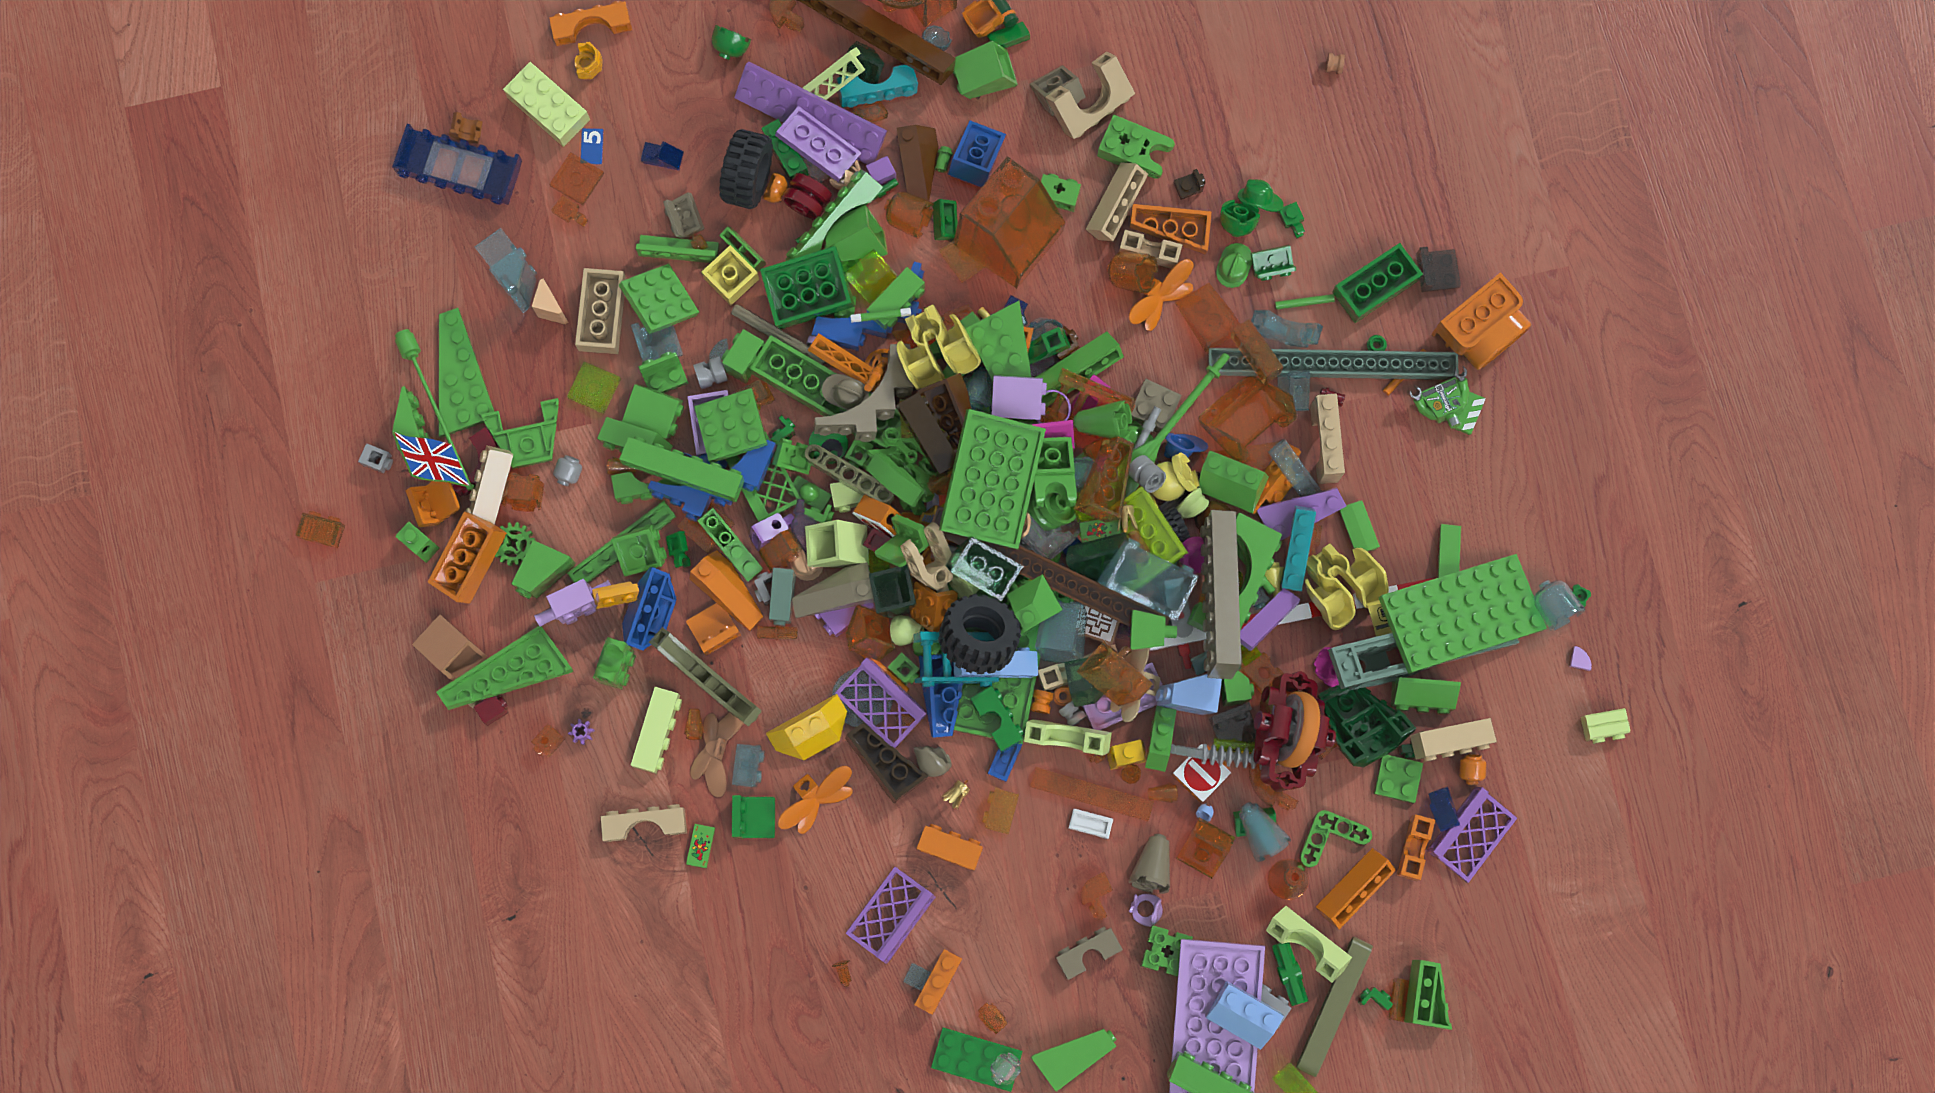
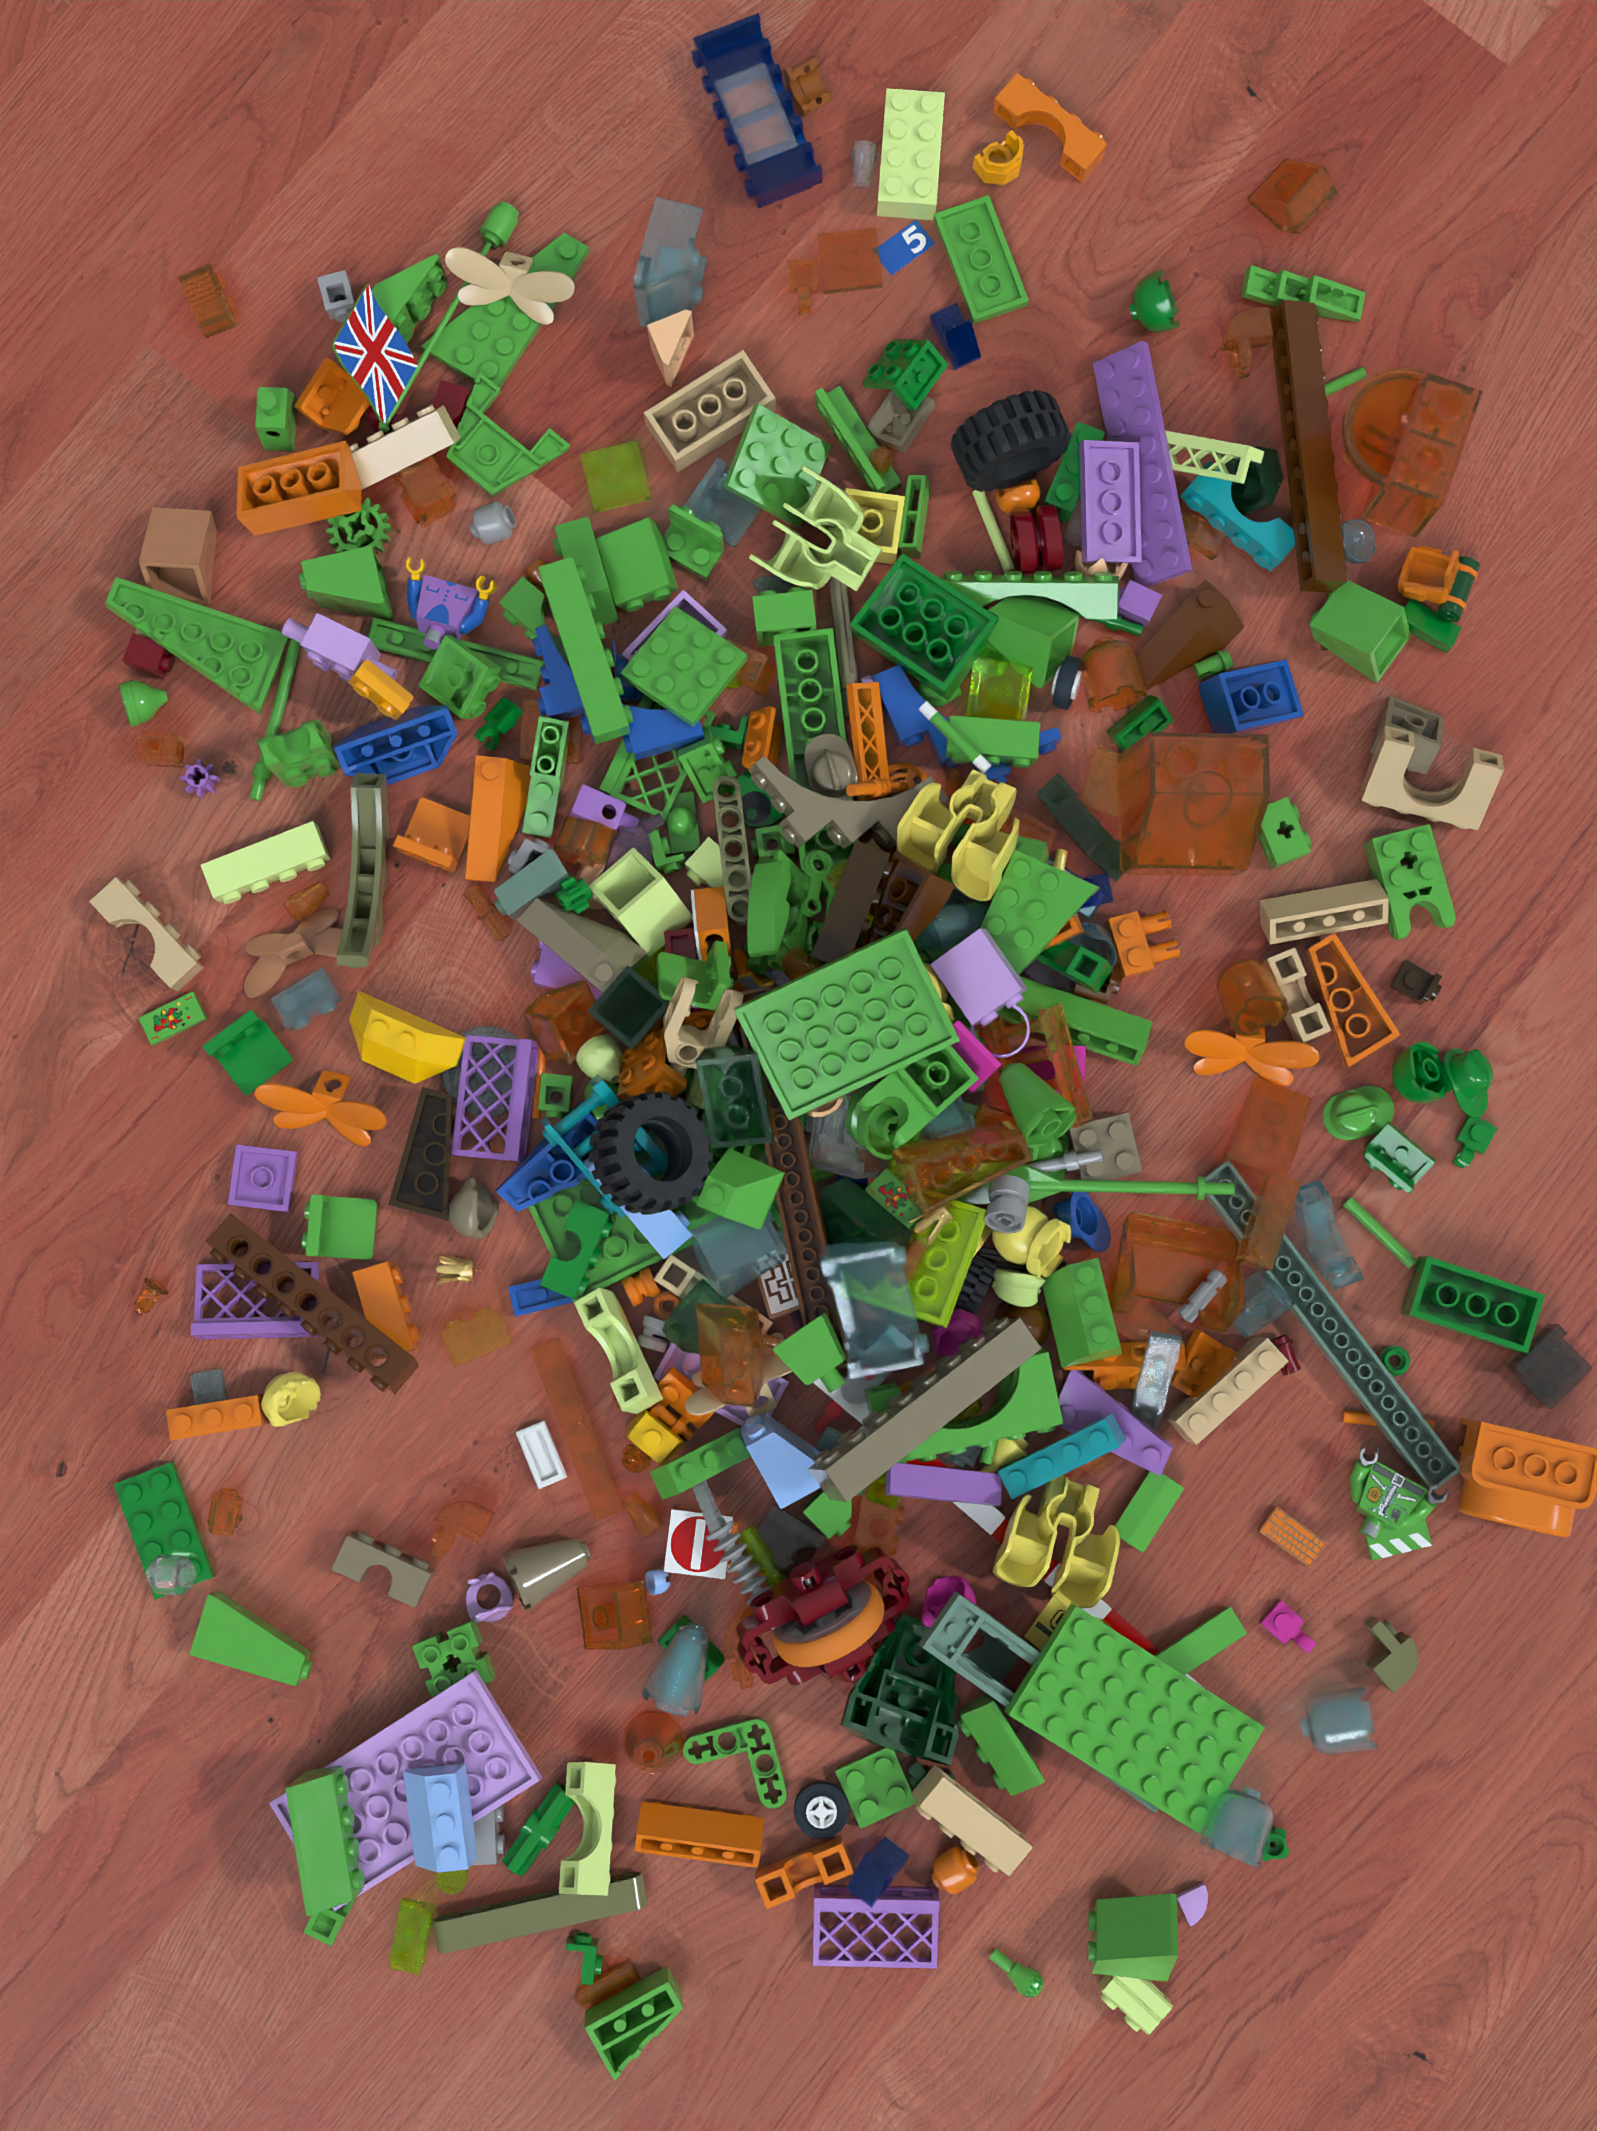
camera: 55 degrees right, 5 degrees up
(438, 370) = (494, 282): none -> tan piece
(512, 732) = (141, 701): none -> bright green helmet
(530, 131) = (863, 162): none -> clear cone
(593, 529) = (445, 606): none -> torso
(602, 695) = (260, 770): none -> bright green bar
(632, 111) = (981, 259): none -> bright green plate
(661, 193) = (907, 369): none -> green bracket
(710, 372) = (735, 594): light grey wheel -> none
(727, 321) = (847, 557): none -> yellowish green piece
(782, 215) = (993, 530): none -> yellowish green bar
(798, 416) = (762, 737): none -> orange bracket
(806, 576) = (574, 894): none -> green gear
(827, 861) = (263, 1178): none -> medium lavender plate
(847, 896) = (235, 1234): none -> reddish brown brick
(886, 838) = (340, 1227): none -> bright green bracket
(894, 238) = (1067, 682): none -> black wheel
(958, 934) = (290, 1398): none -> light yellow hair
(976, 289) = (1081, 825): none -> clear green slope
(1063, 312) = (1130, 942): none -> orange brick
(1114, 723) = (675, 1391): none -> orange plate
(1269, 414) = (1202, 1295): none -> light grey axle
(1281, 1041) = (452, 1881): none -> clear neon green tile
(1307, 440) = (1206, 1364): none -> orange bracket
(1395, 810) = (821, 1822): none -> black wheel
(1428, 465) = (1292, 1536): none -> orange tile
(1471, 504) = (1285, 1625): none -> dark pink plate
(1530, 458) = (1398, 1658): none -> olive brick
(1541, 512) = (1339, 1722): none -> clear light blue cylinder
(1557, 775) = (1025, 1979): none -> bright green piece
(1574, 699) = (1134, 1936): none -> bright green slope

